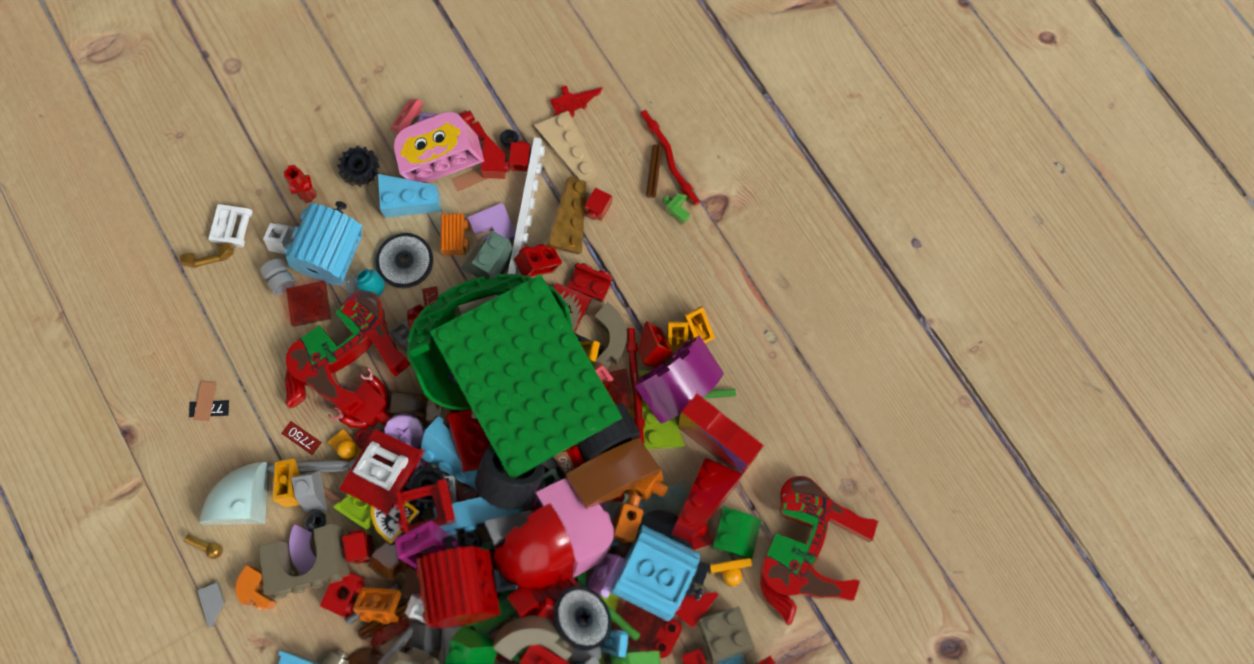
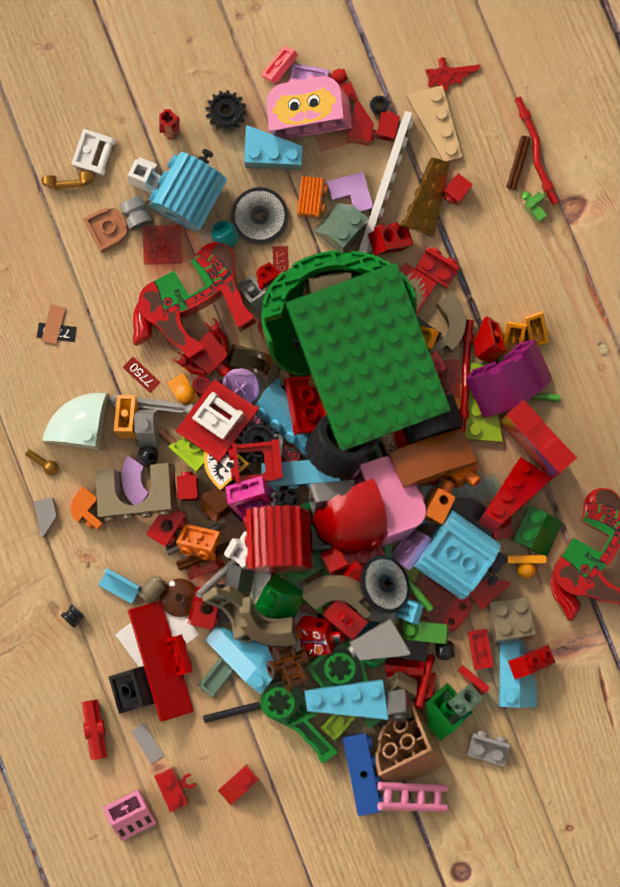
camera: 10 degrees right, 10 degrees up
(251, 297) = (107, 228): none -> nougat tile

